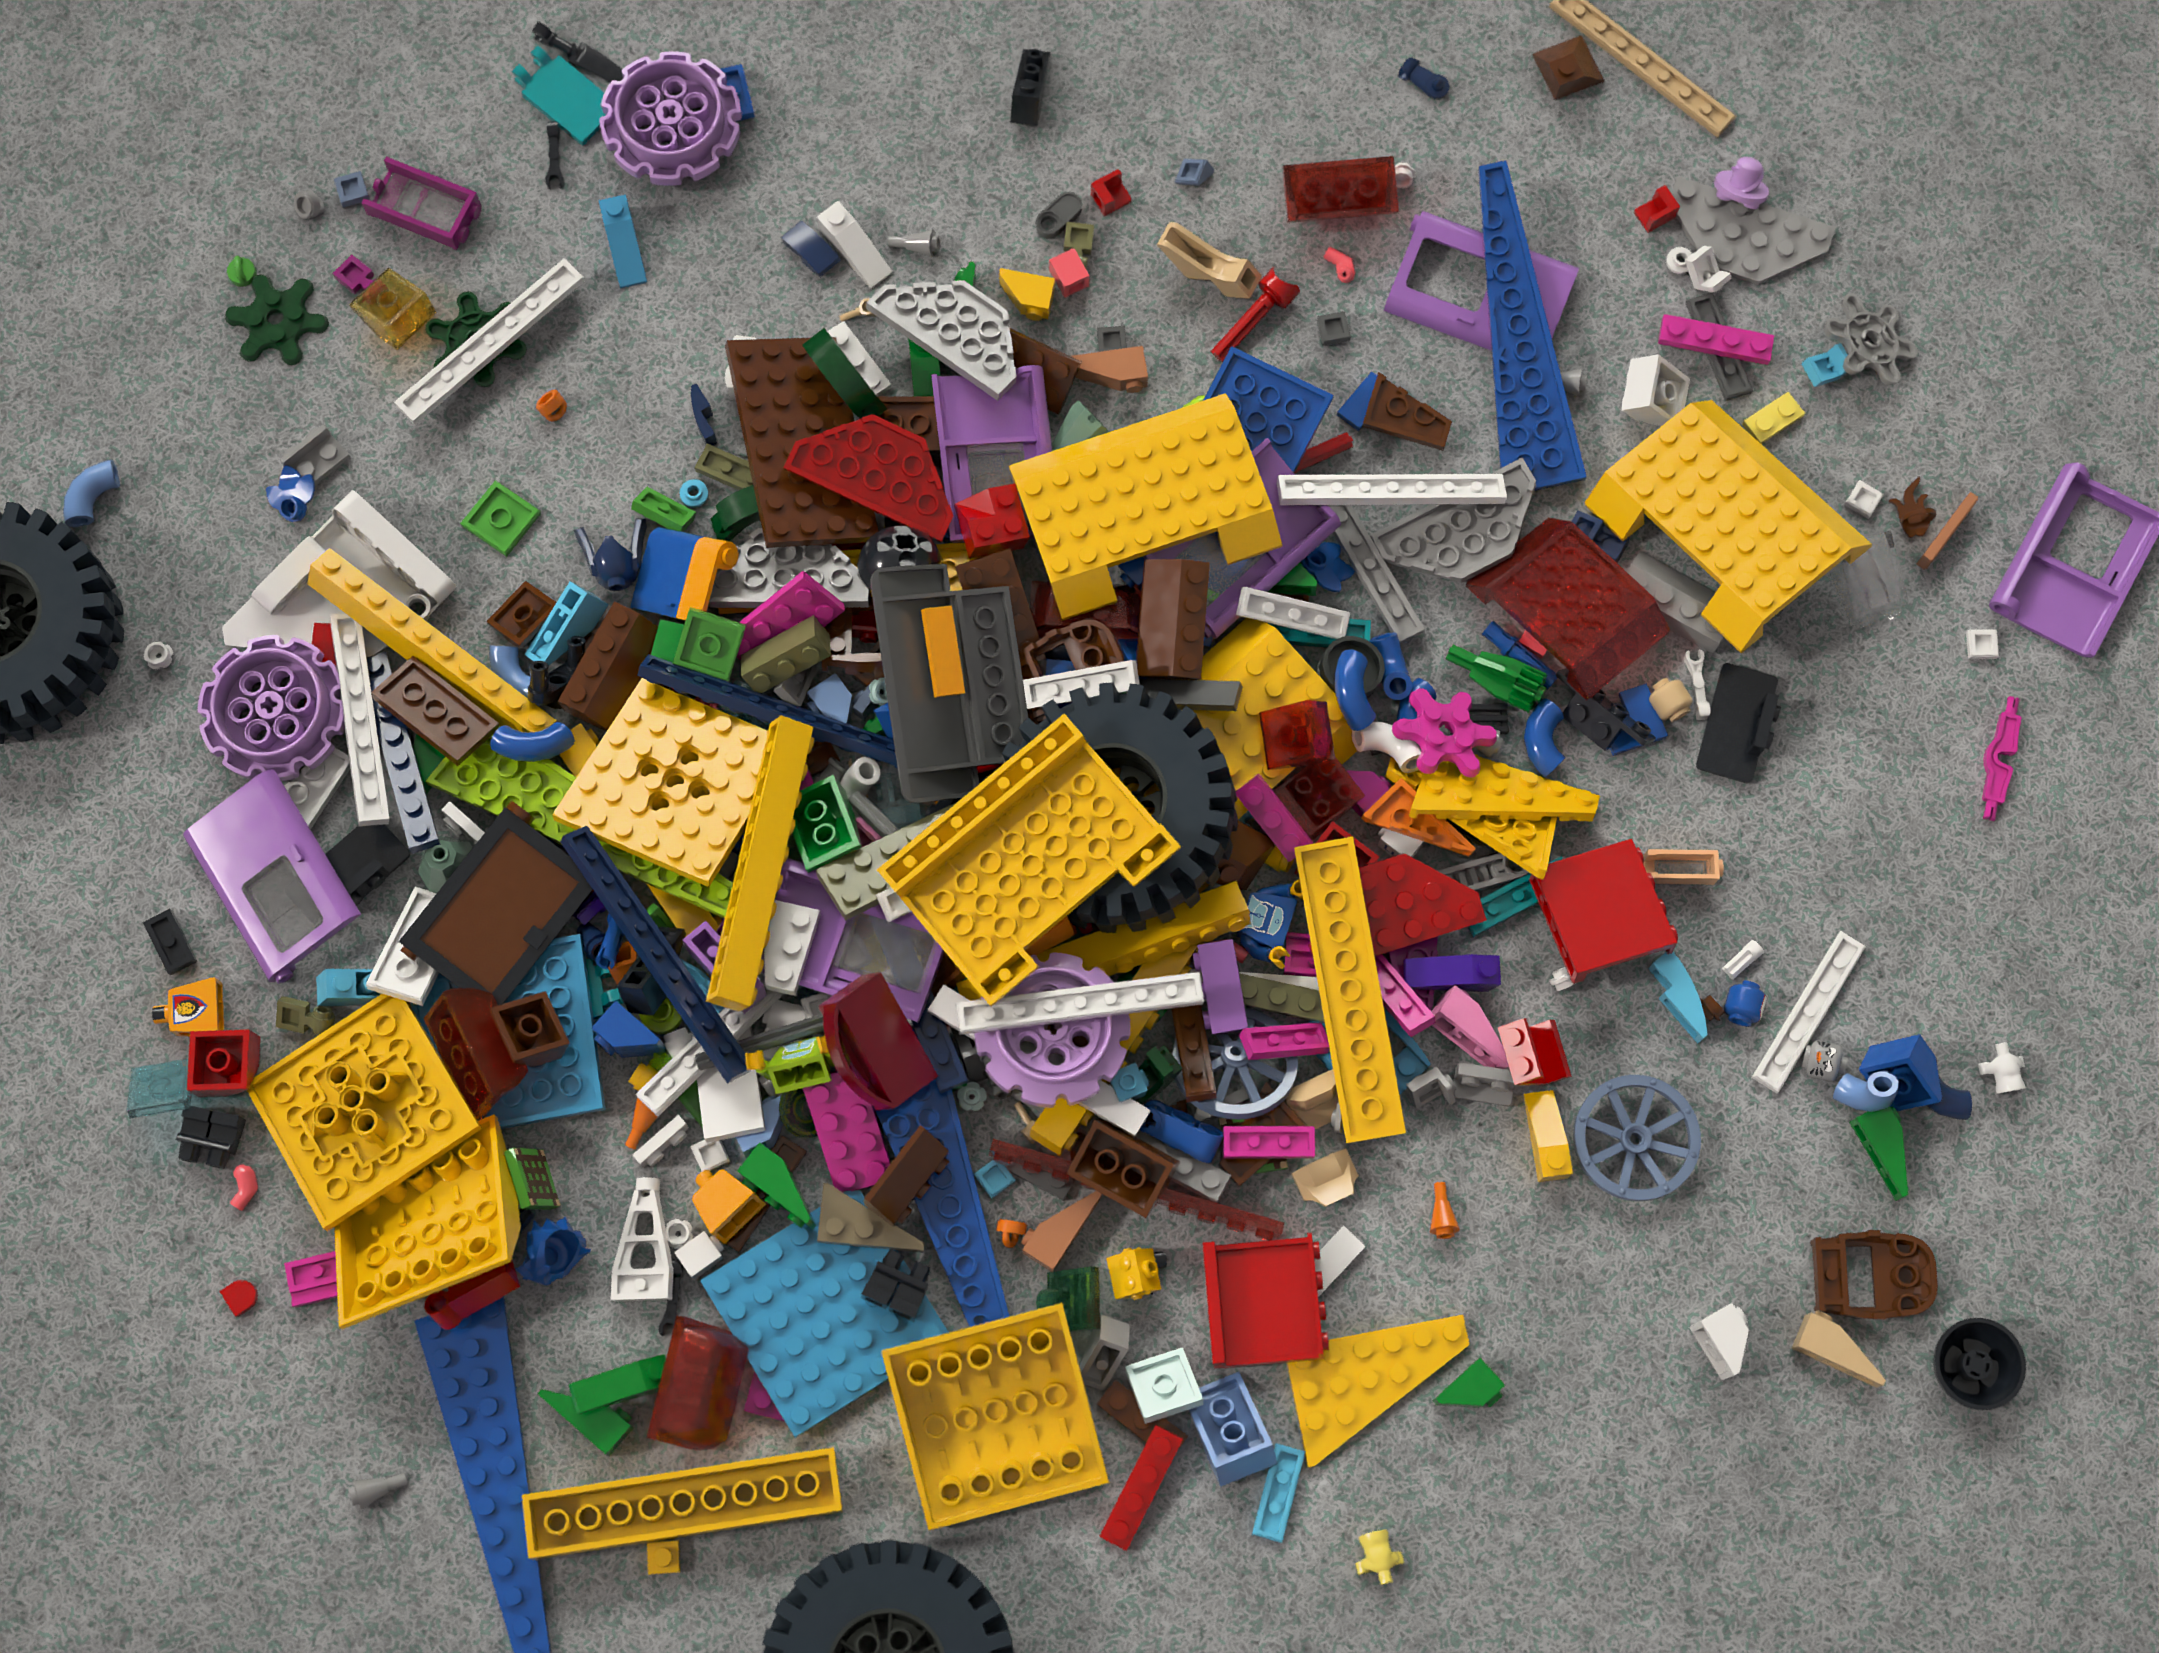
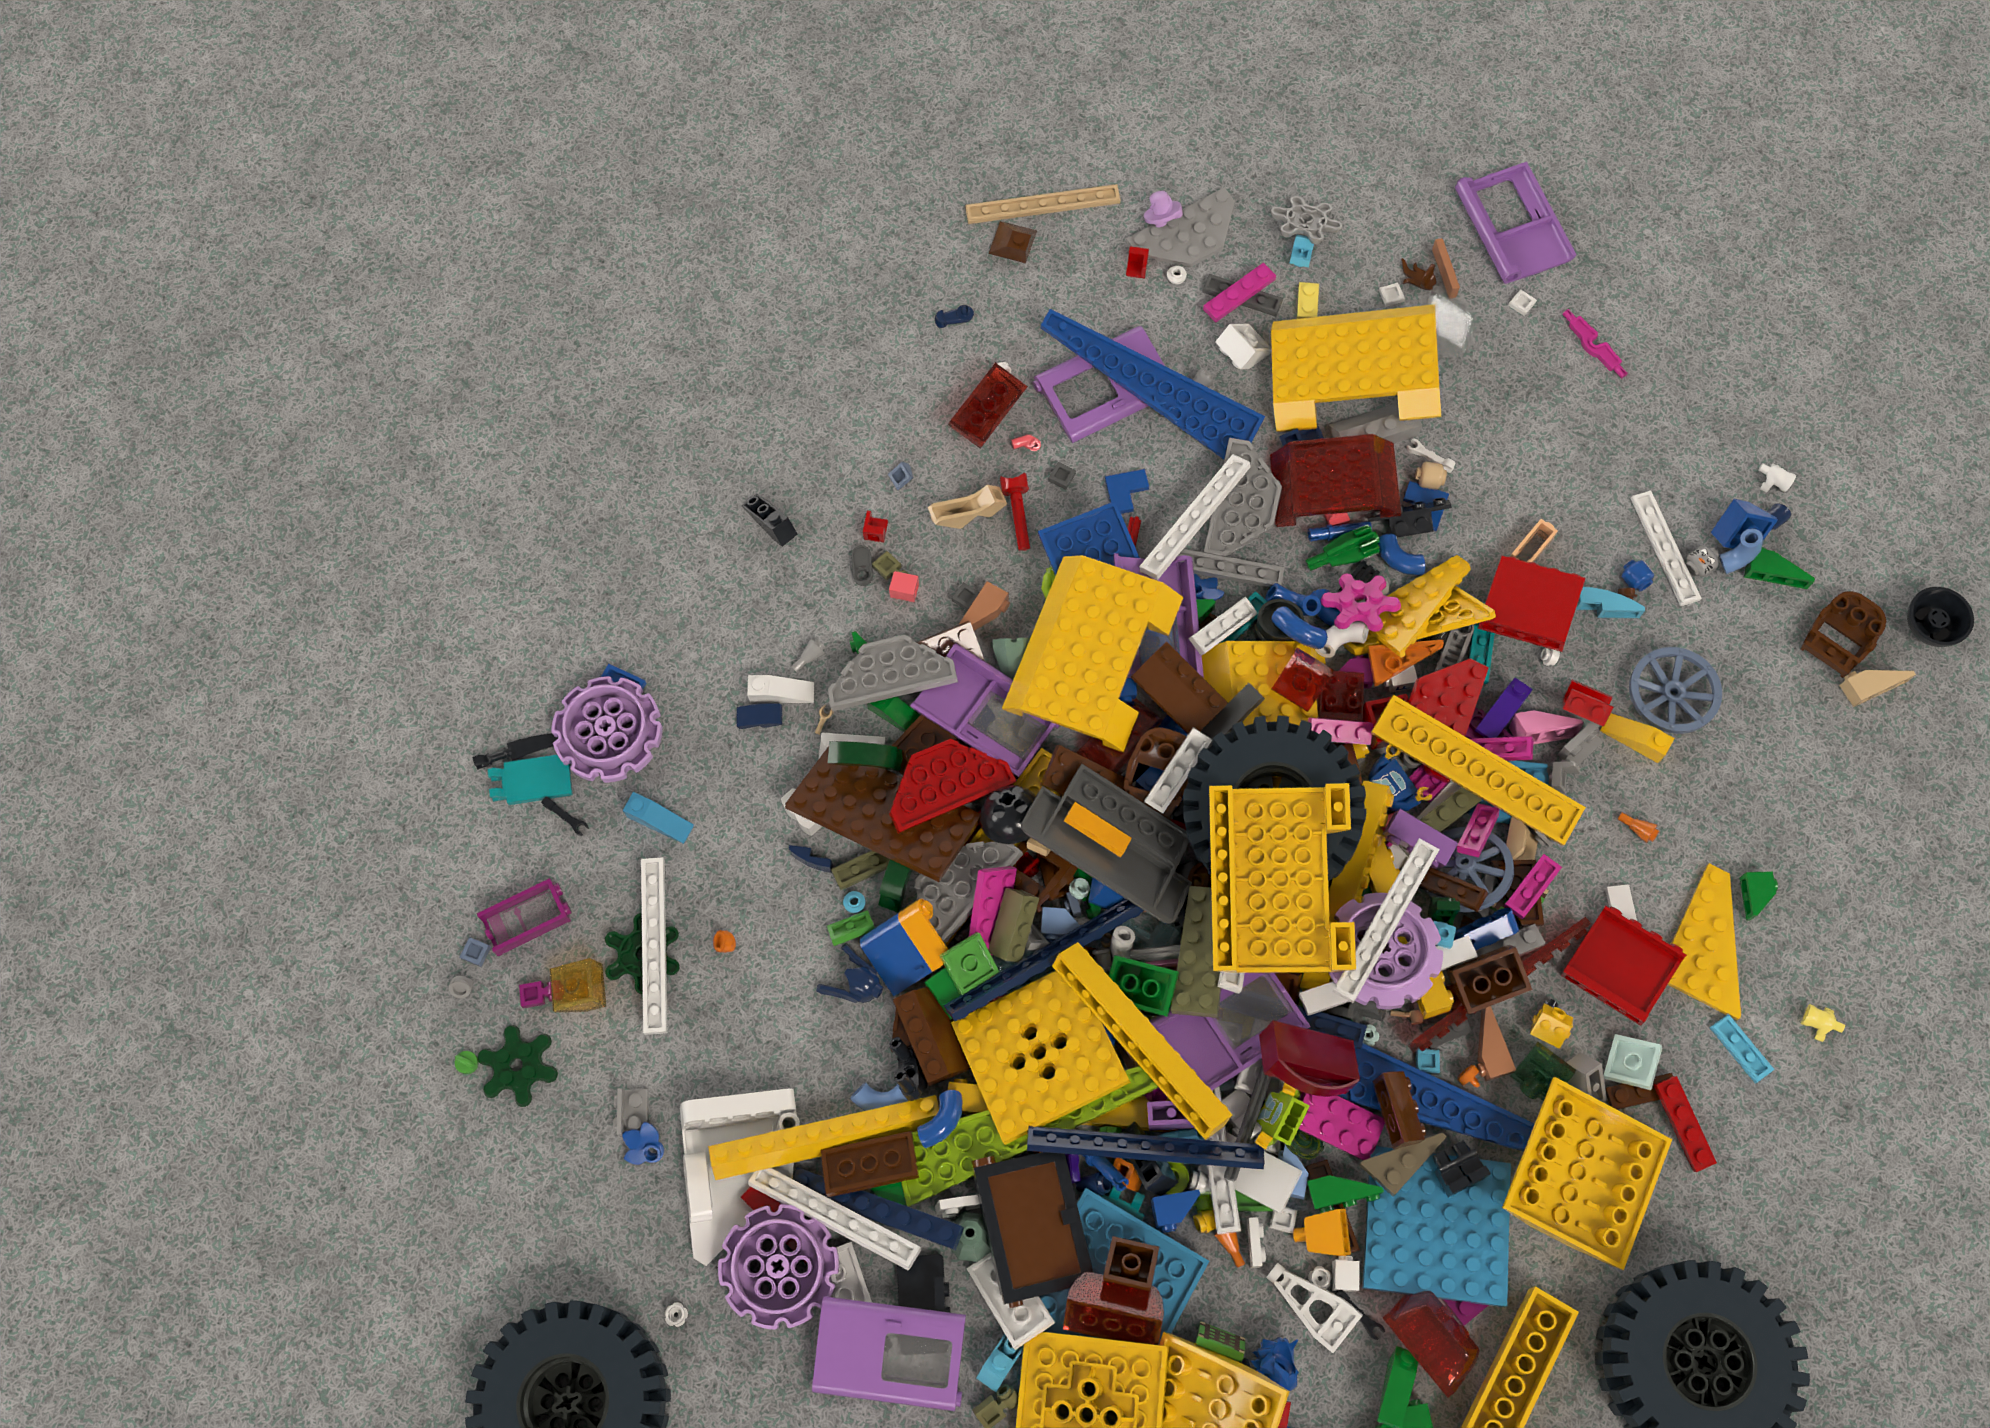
camera: 45 degrees left, 5 degrees down
(85, 490) = (524, 1275): medium blue cylinder -> none
(500, 518) = (769, 1029): bright green tile -> none
(522, 614) = (846, 1063): reddish brown slope -> none
(572, 615) = (875, 1036): medium azure slope -> none
(789, 945) = (1204, 1063): white wing -> none
(992, 521) = (1029, 743): red slope -> none
(1028, 292) = (896, 618): yellow slope -> none
(1232, 1430) = (1688, 1044): medium blue slope -> none
(1327, 1178) = (1574, 875): tan slope -> none
(1402, 416) = (1148, 480): reddish brown wing -> none
(1705, 271) = (1196, 268): white bracket -> none
(1723, 1339) = (1830, 735): white slope -> none
(1739, 723) = (1474, 452): black bracket -> none
(1743, 959) = (1609, 556): white piece -> none

